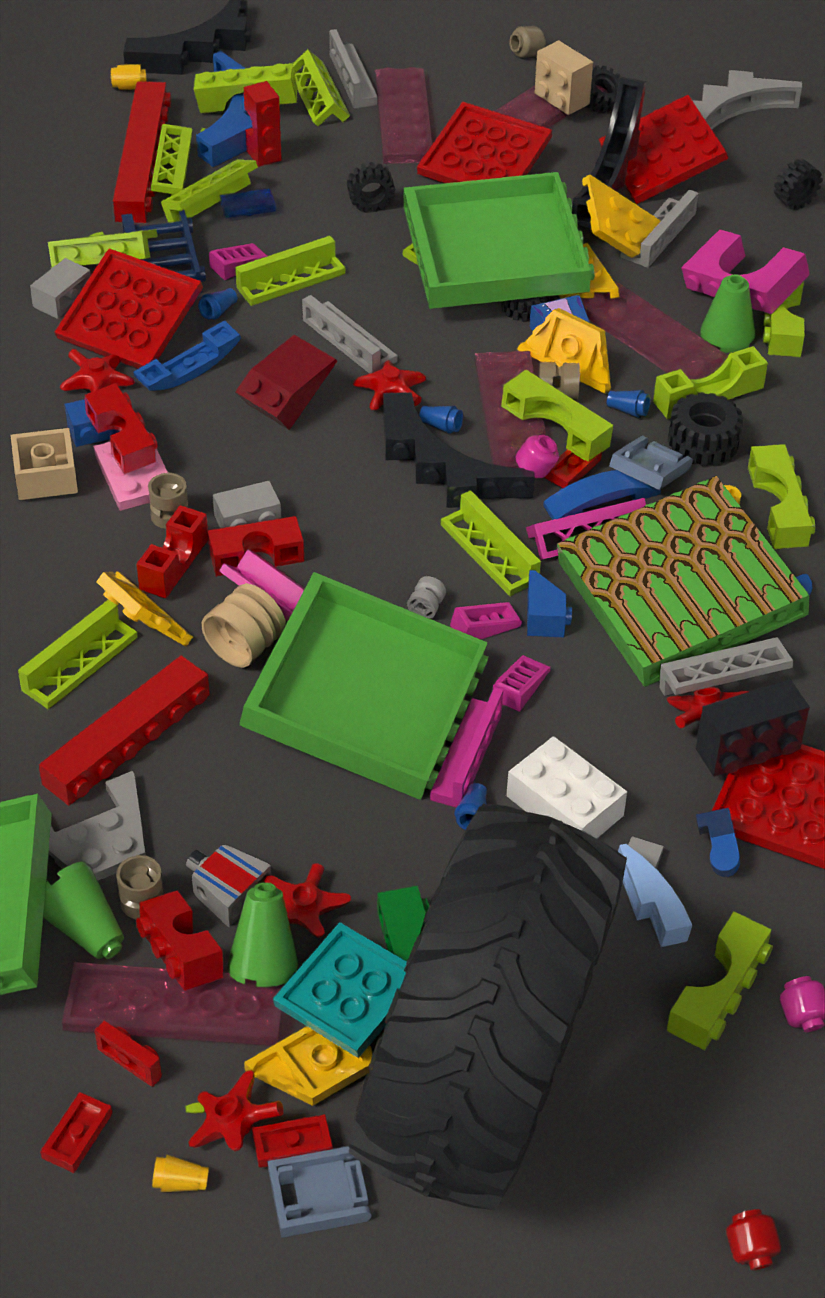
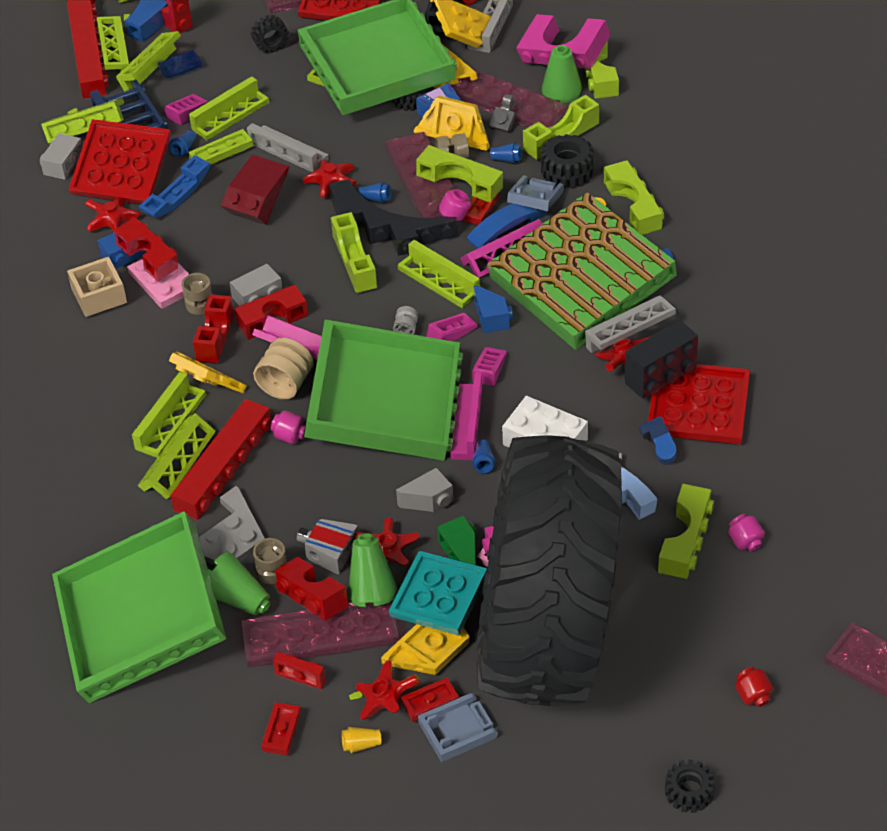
camera: 10 degrees left, 0 degrees up
(60, 707) = (170, 452): none -> lime fence
(224, 706) = (288, 427): none -> dark pink head
(266, 319) = (223, 147): none -> lime plate
(379, 840) = (426, 492): none -> light grey slope
(386, 490) = (358, 265): none -> lime arch
(639, 355) = (504, 117): none -> dark grey plate

